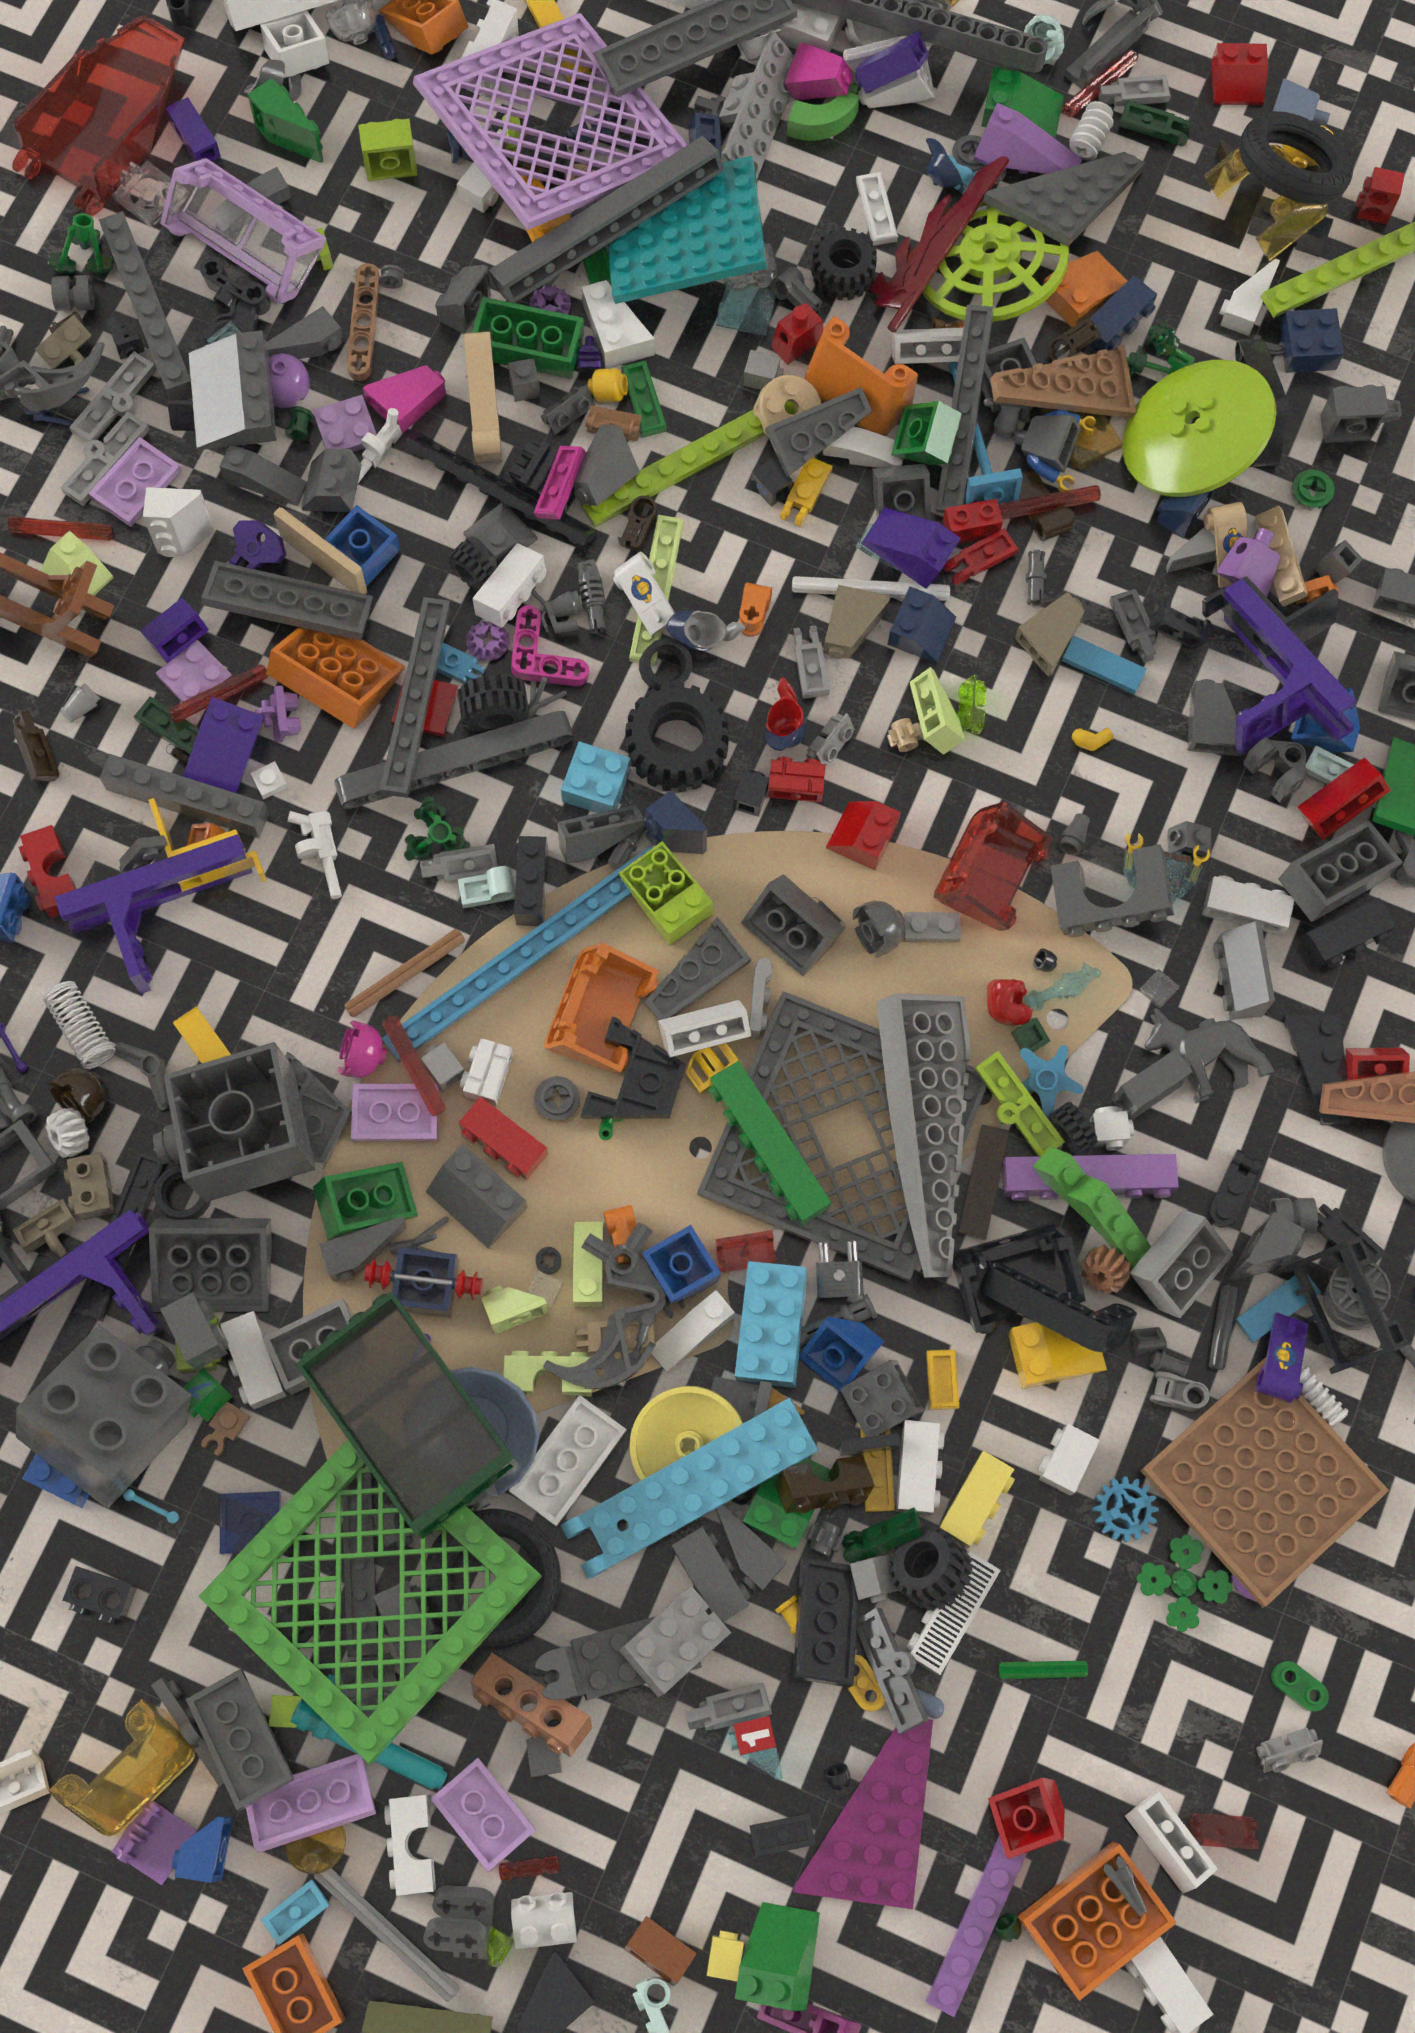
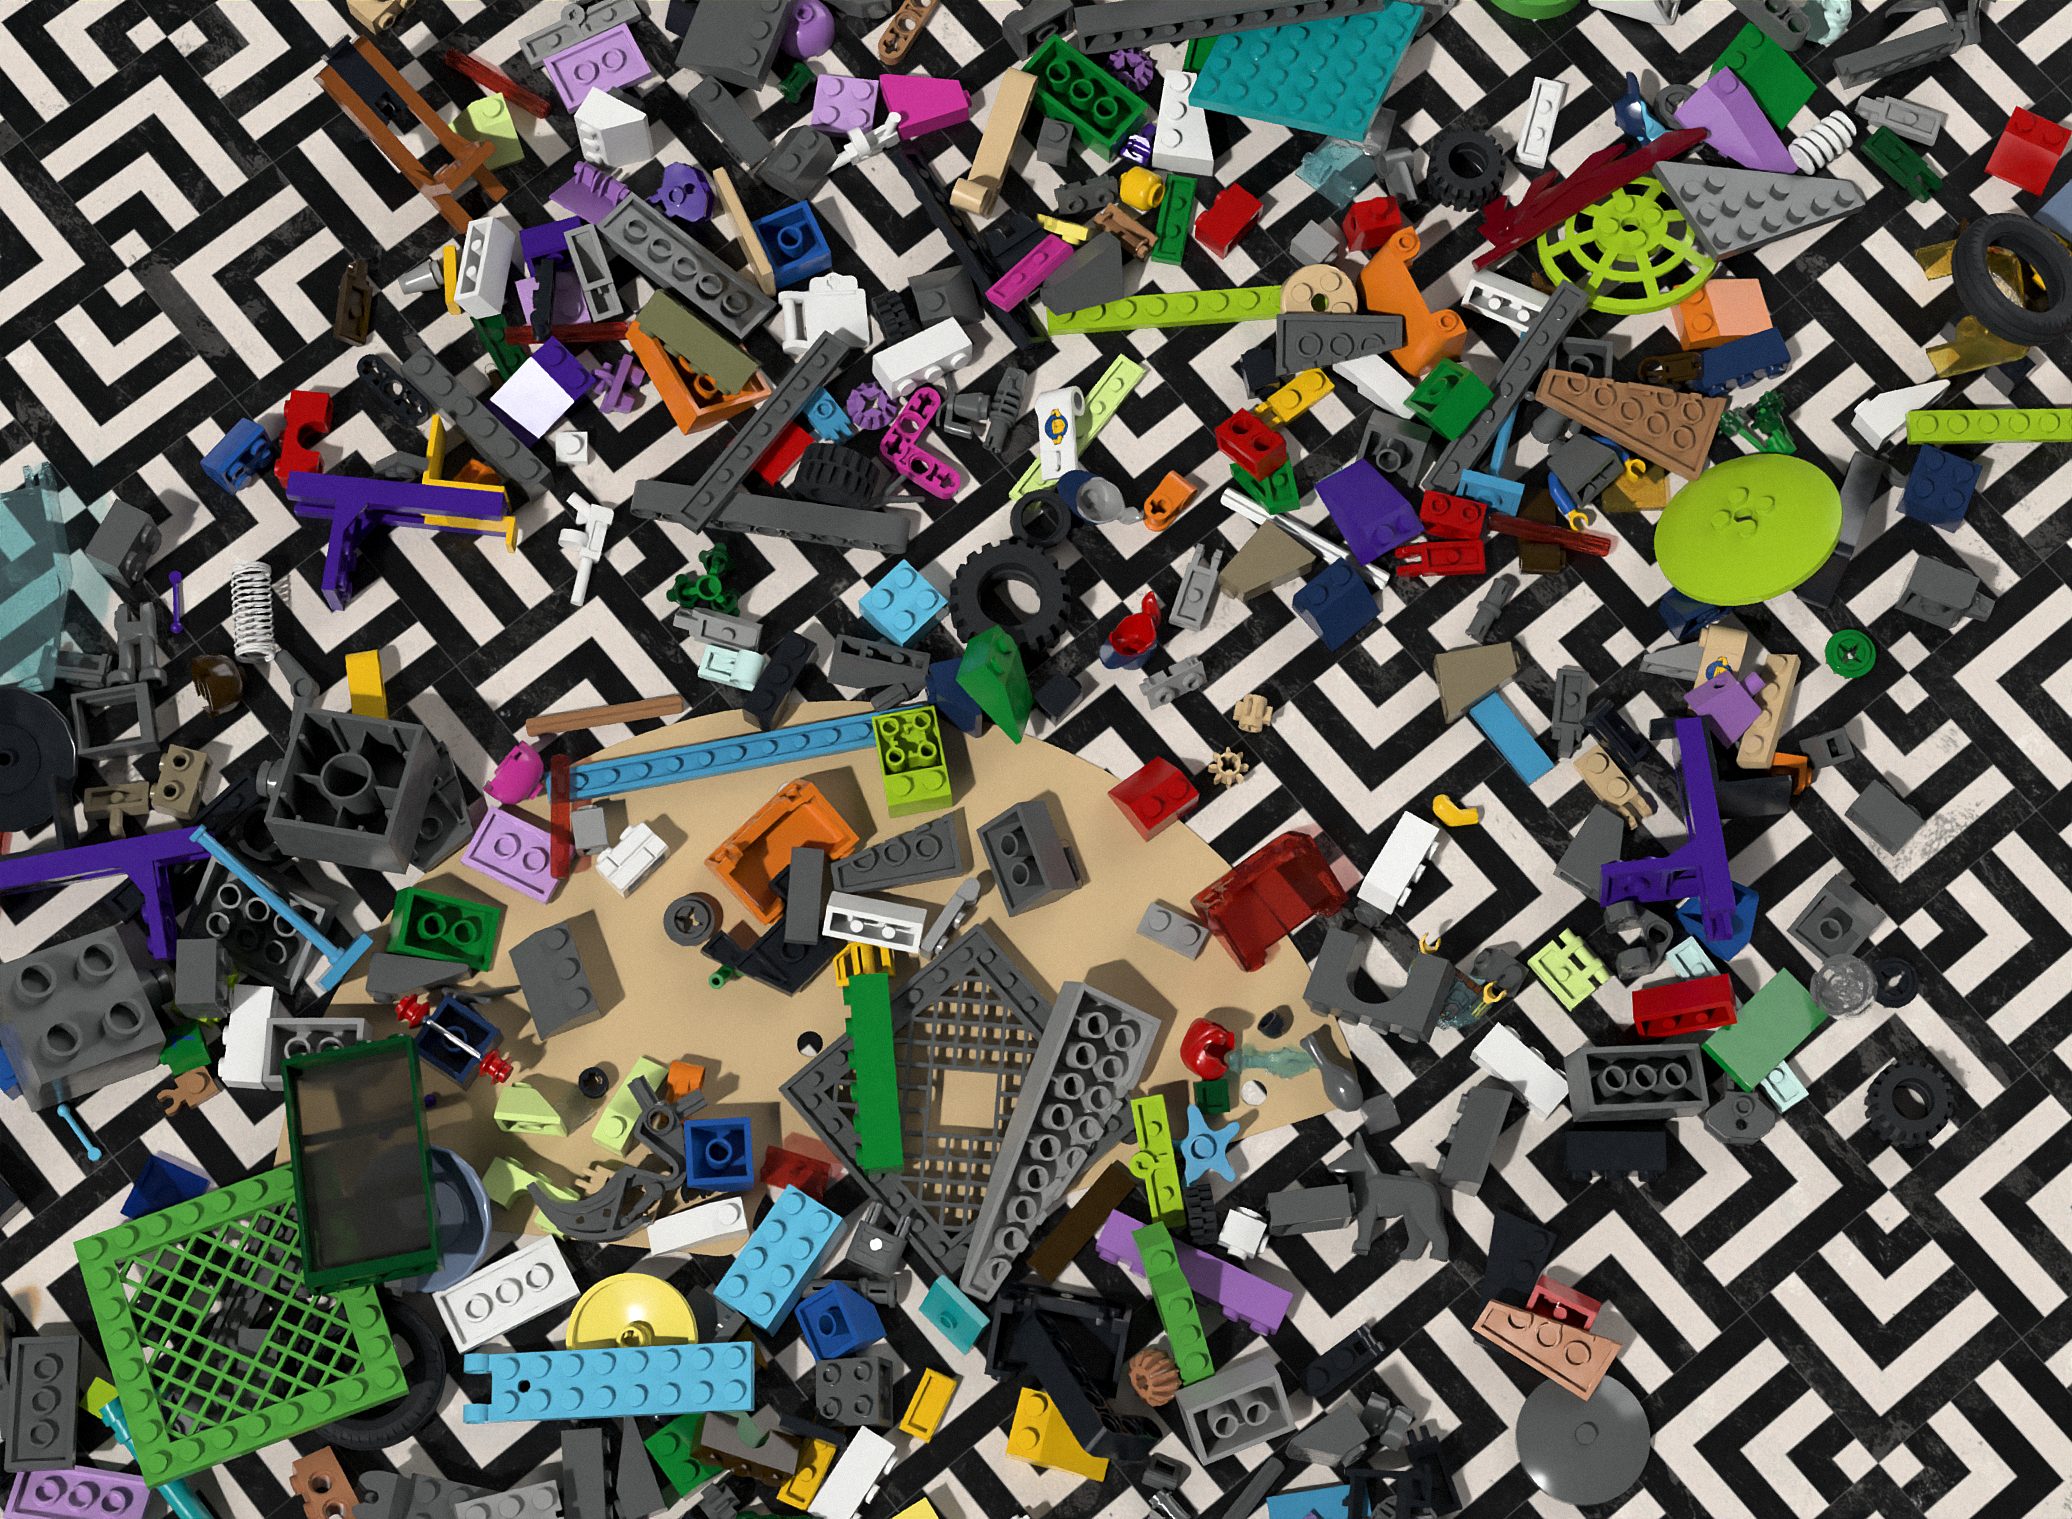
camera: 30 degrees right, 0 degrees up
(67, 1132) = (185, 717): white gear -> none
(104, 693) = (451, 274): none -> yellow tile
(121, 798) = (384, 369): none -> black beam
(127, 671) = (484, 267): none -> white brick
(182, 580) = (590, 193): none -> medium lavender hinge
(188, 674) = (543, 299): none -> black plate
(217, 636) = (593, 273): none -> light grey slope
(296, 1262) = (339, 958): none -> dark azure tile
(330, 649) = (698, 342): none -> olive slope
(412, 579) = (829, 305): none -> white piece
(502, 1139) = (611, 936): red brick -> none
(568, 438) = (1070, 231): none -> light yellow wing
(638, 527) = (1091, 357): dark brown piece -> none
(638, 1034) = (804, 896): none -> dark grey tile
(686, 380) = (1228, 220): none -> red brick
(700, 796) = (997, 680): none -> green slope
(795, 535) = (1251, 444): none -> red brick
(796, 779) = (1113, 706): red brick -> none
(823, 558) = (1274, 493): none -> green wing
(879, 927) = (1114, 904): dark grey cylinder -> none
(910, 777) = (1227, 759): none -> tan gear
(929, 1298) = (954, 1314): none -> teal plate
(935, 712) = (1298, 706): yellowish green slope -> none
(972, 694) = (1348, 705): clear neon green hinge -> none
(1076, 793) = (1399, 863): none -> white brick
(1107, 77) = (1870, 89): clear red axle -> none
(1119, 979) = (1338, 1083): none -> dark grey piece
(1194, 664) = (1611, 785): none -> tan hinge
(1238, 820) = (1561, 973): none -> yellowish green plate

